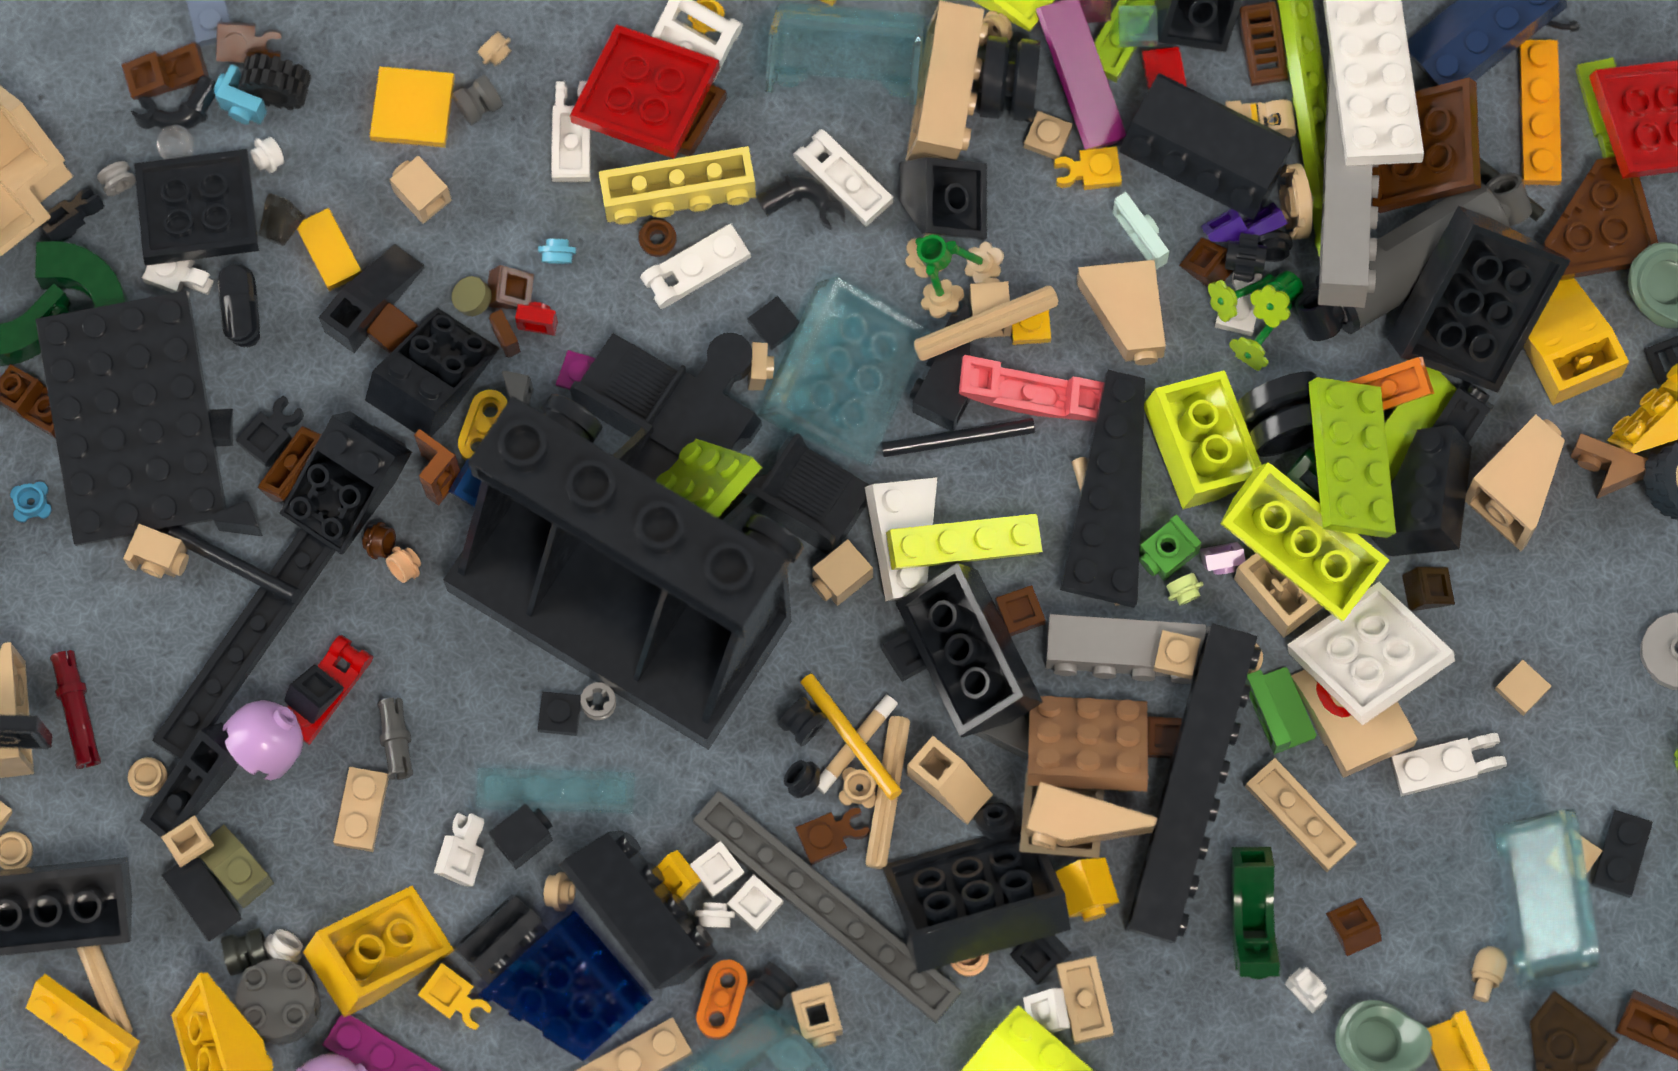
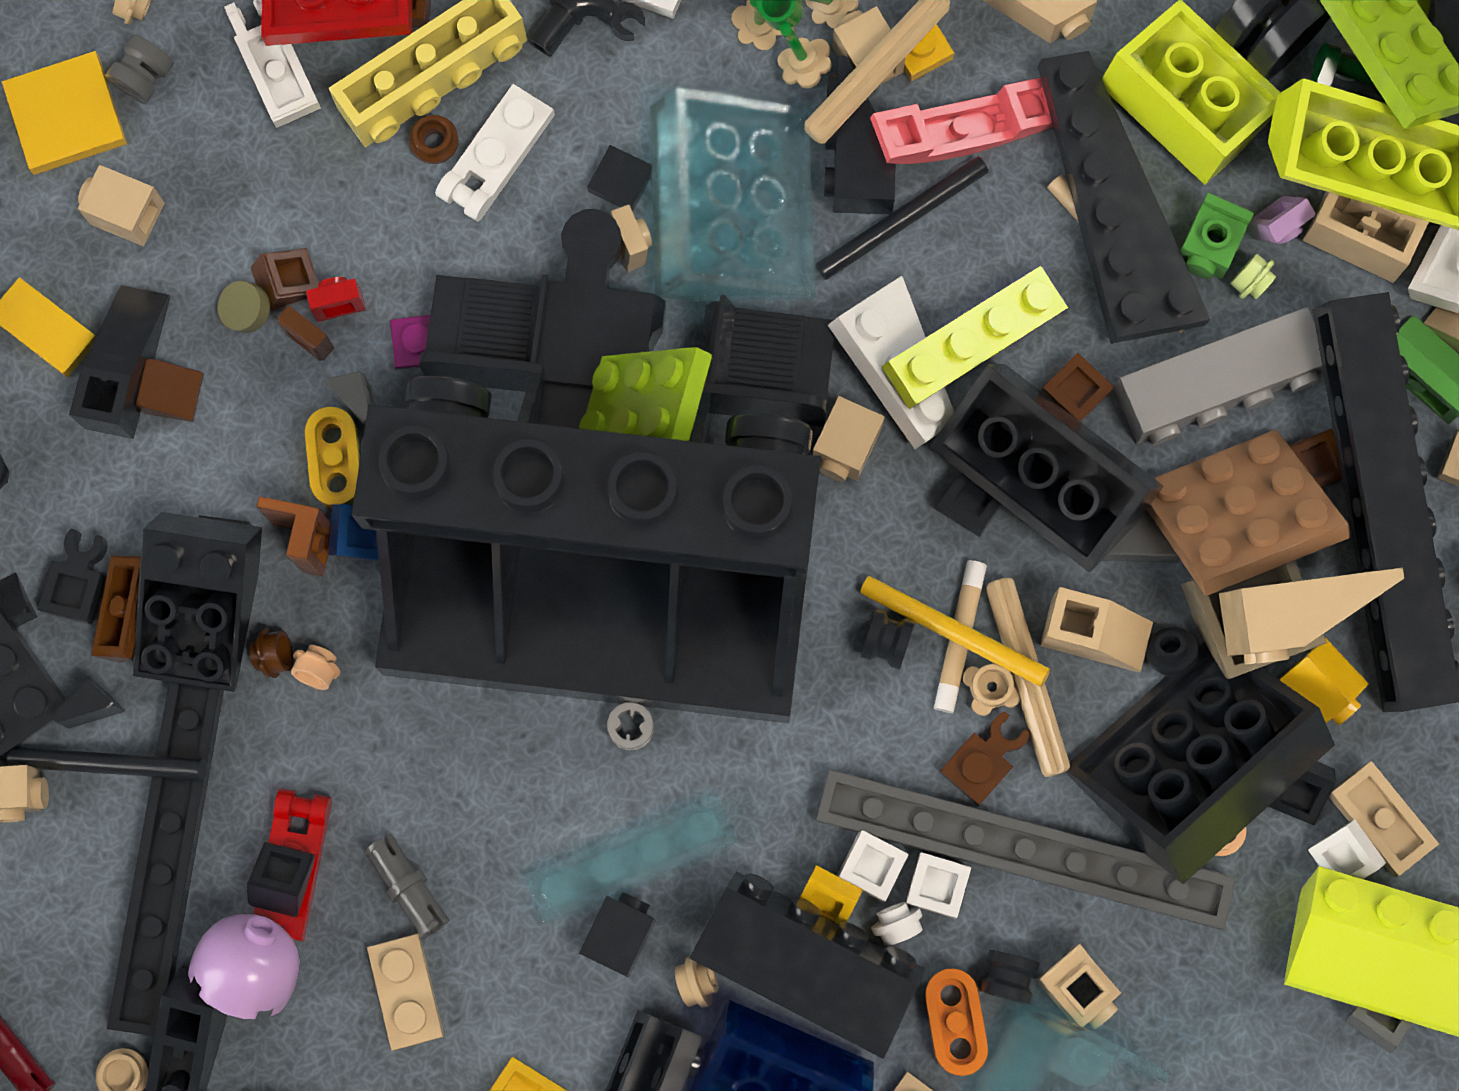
camera: 25 degrees left, 5 degrees up
(429, 373) = (236, 422): black slope -> none
(459, 854) = (555, 994): white plate -> none
(557, 251) = (321, 208): medium azure plate -> none
(559, 713) = (590, 762): black plate -> none
(802, 778) = (920, 708): black plate -> none
(1177, 654) = (1294, 357): tan plate -> none

